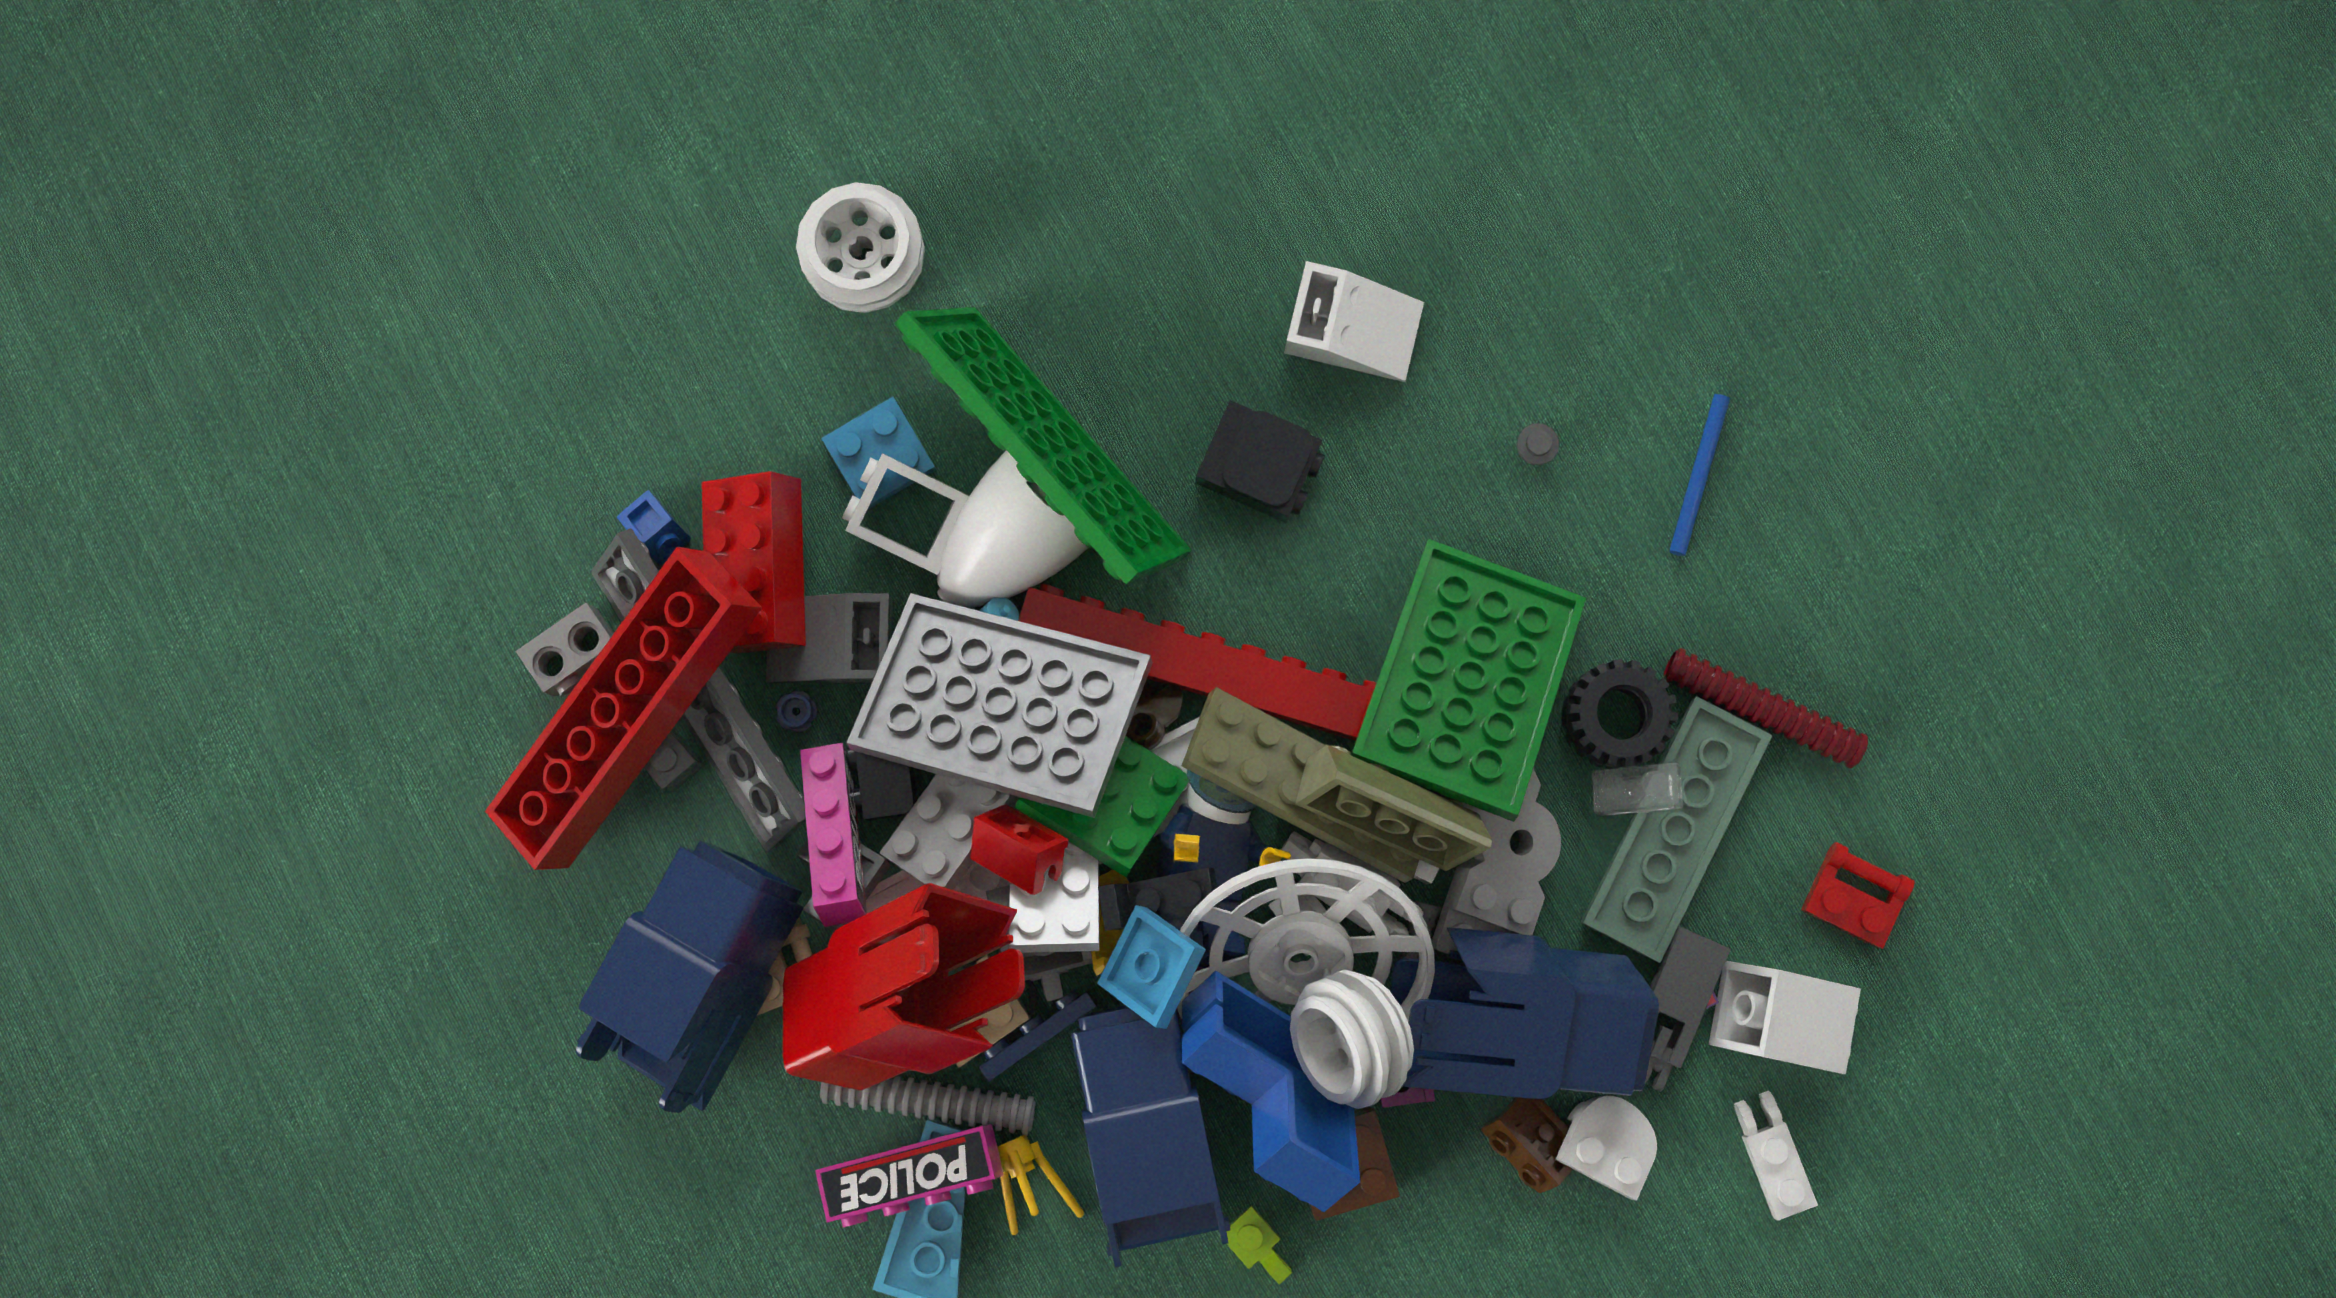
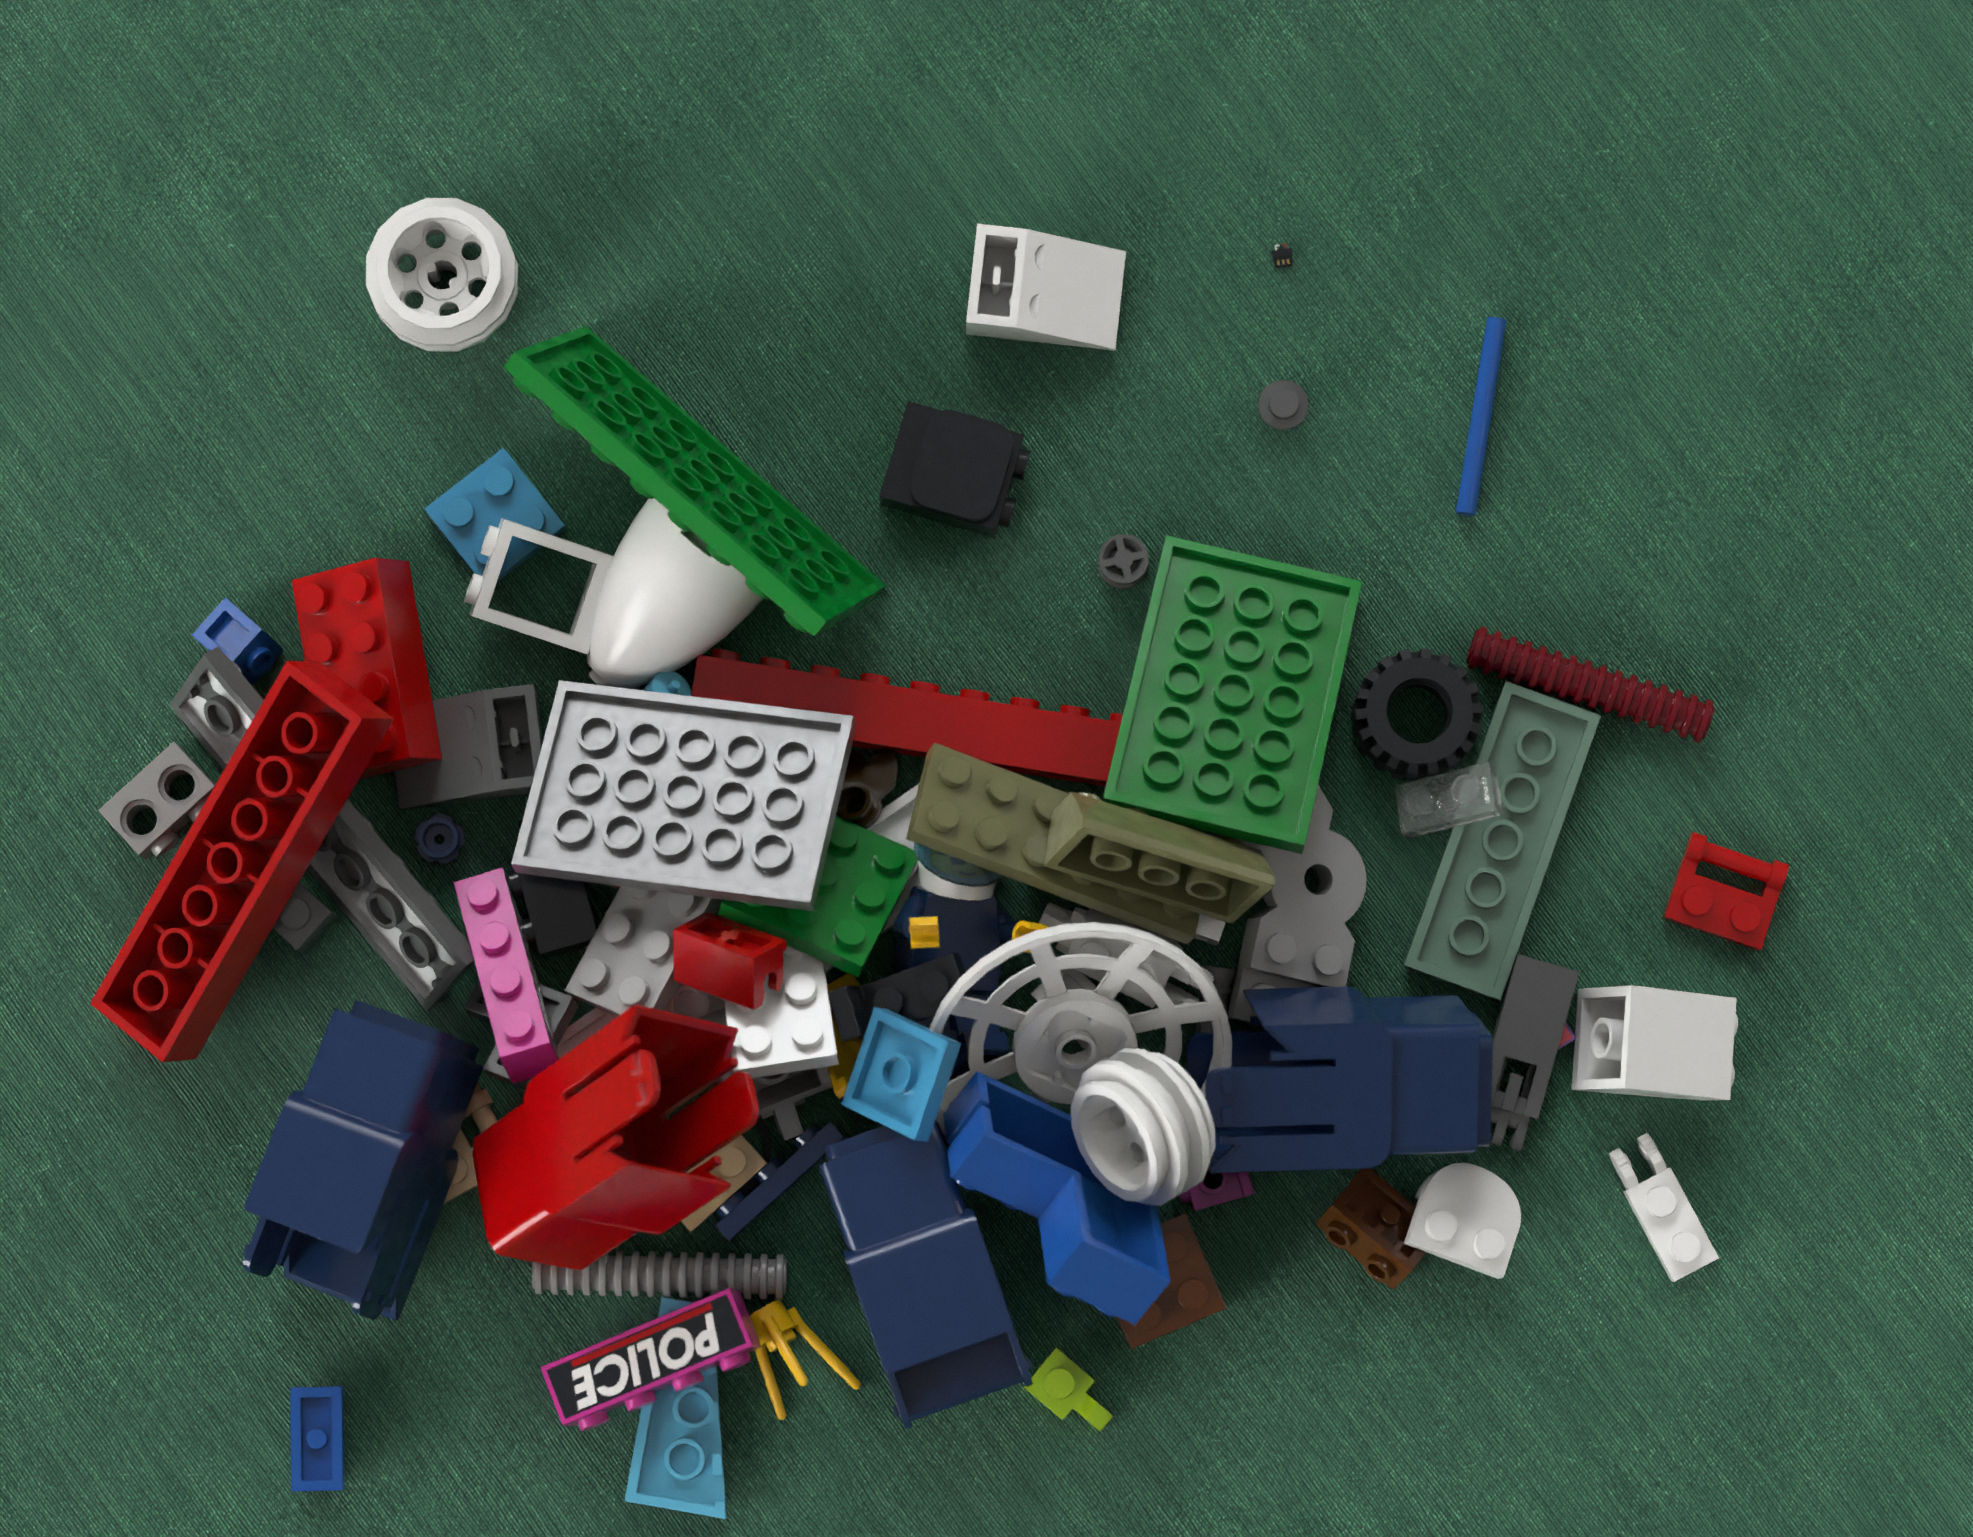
camera: 10 degrees left, 0 degrees up
(624, 1200) = (317, 1438): none -> blue plate
(1390, 547) = (1121, 552): none -> dark grey wheel
(1551, 324) = (1282, 257): none -> black piece

